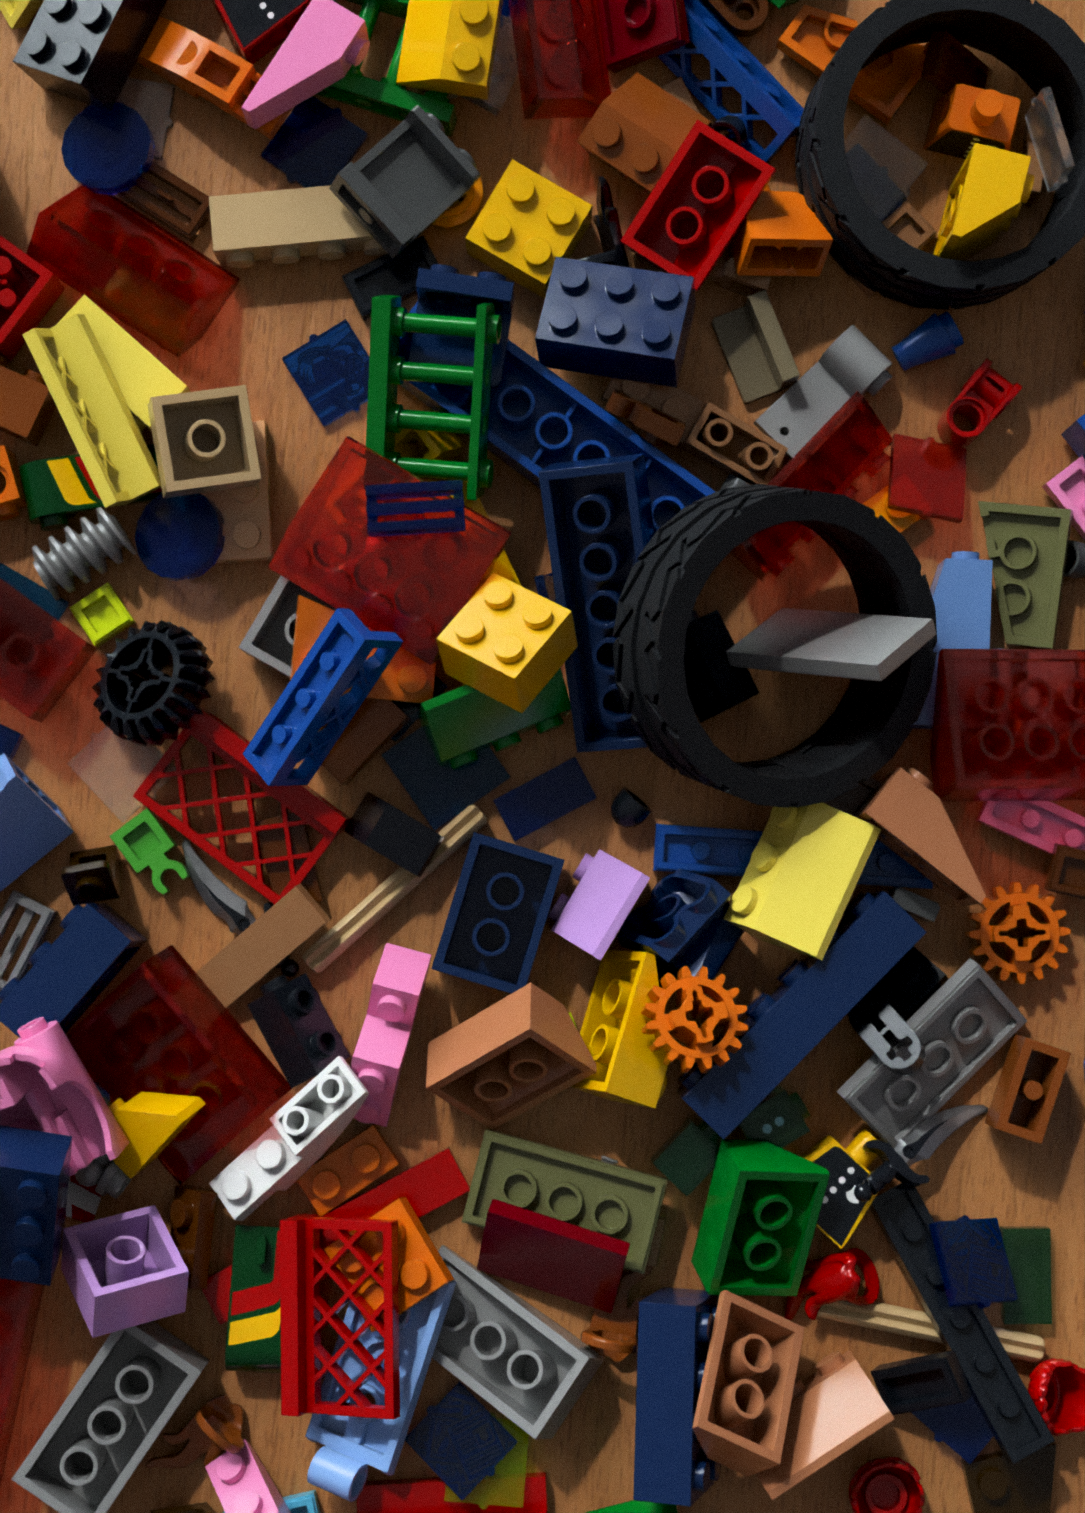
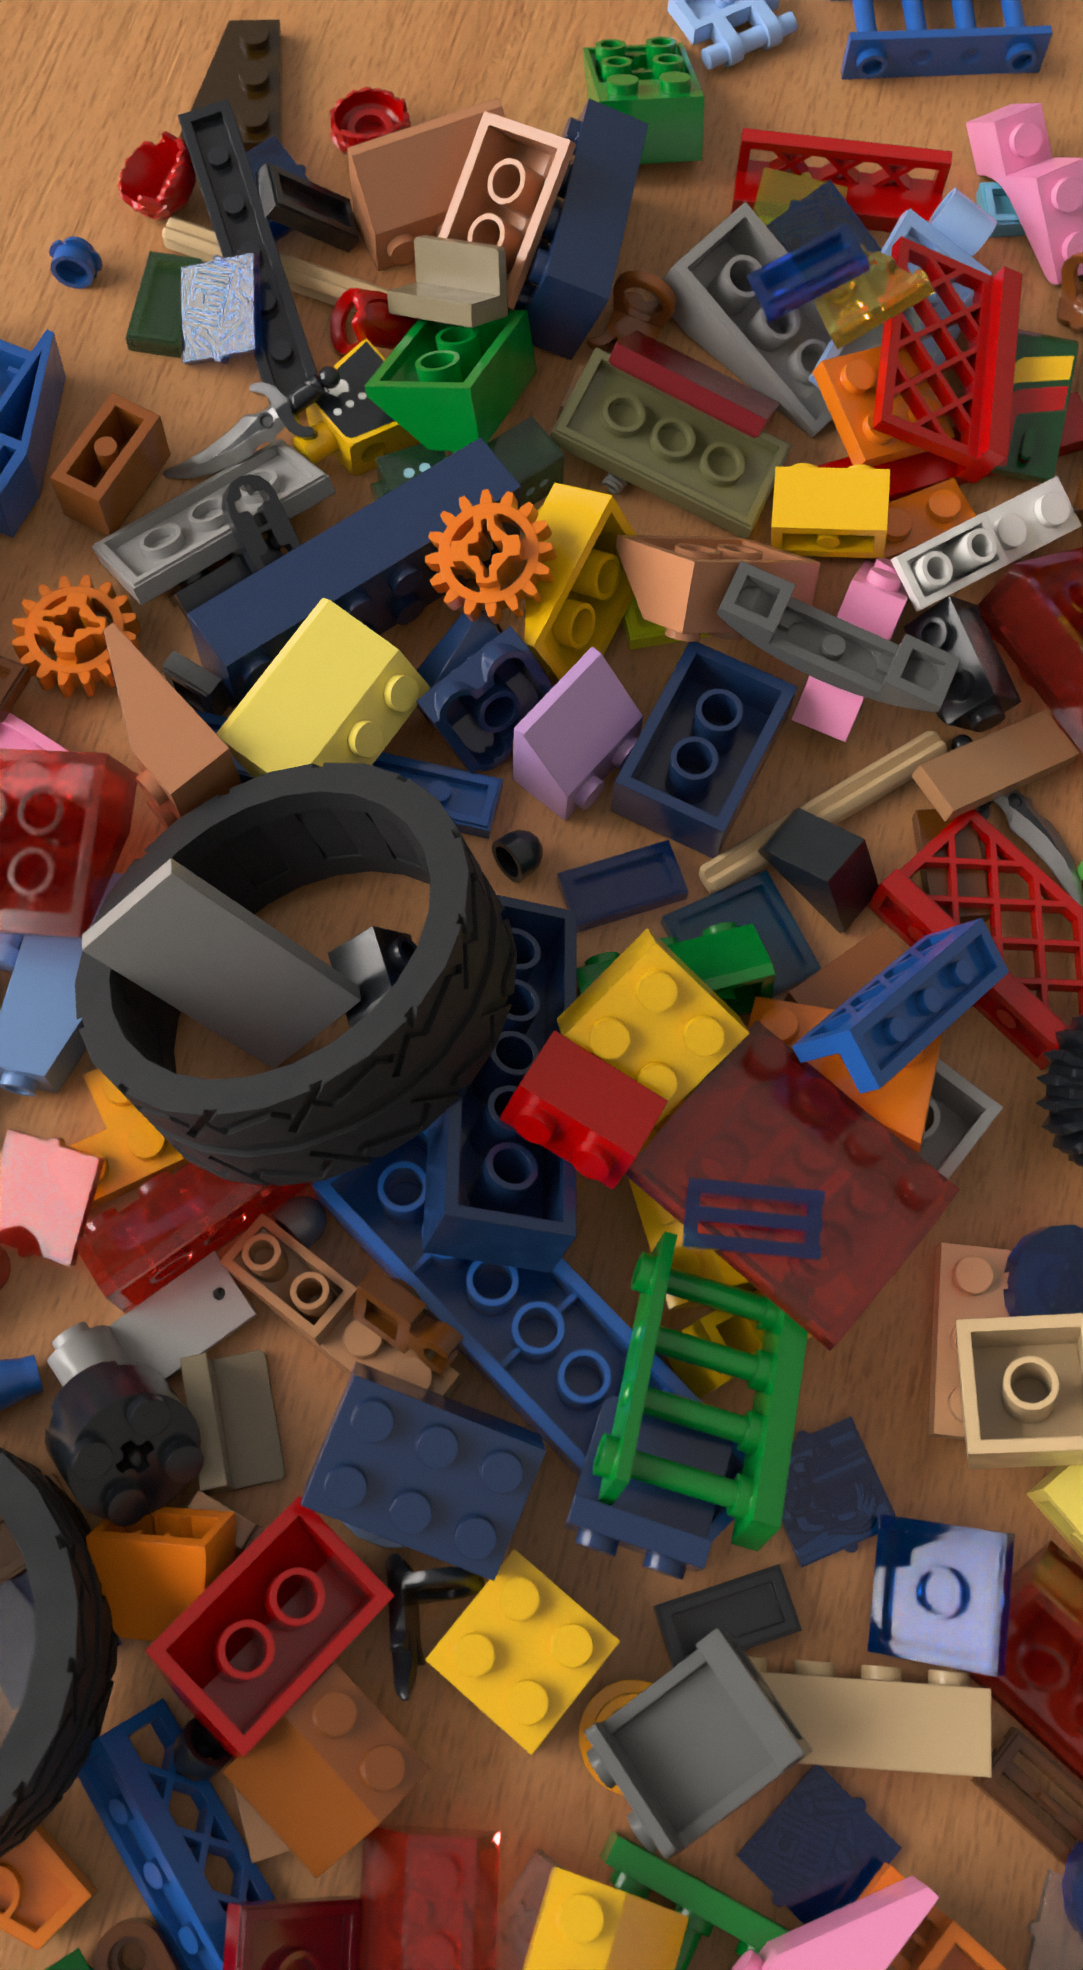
camera: 175 degrees left, 15 degrees down
(251, 308) = (942, 1594): none -> clear blue tile
(405, 998) = (832, 649): none -> dark grey slope
(423, 1150) = (830, 510): none -> yellow brick
(426, 1357) = (871, 298): none -> clear yellow wing
(470, 1366) = (808, 272): none -> clear blue tile
(547, 562) = (583, 1110): none -> red brick
(776, 1300) = (454, 283): none -> dark tan panel
(824, 308) = (123, 1441): none -> black brick

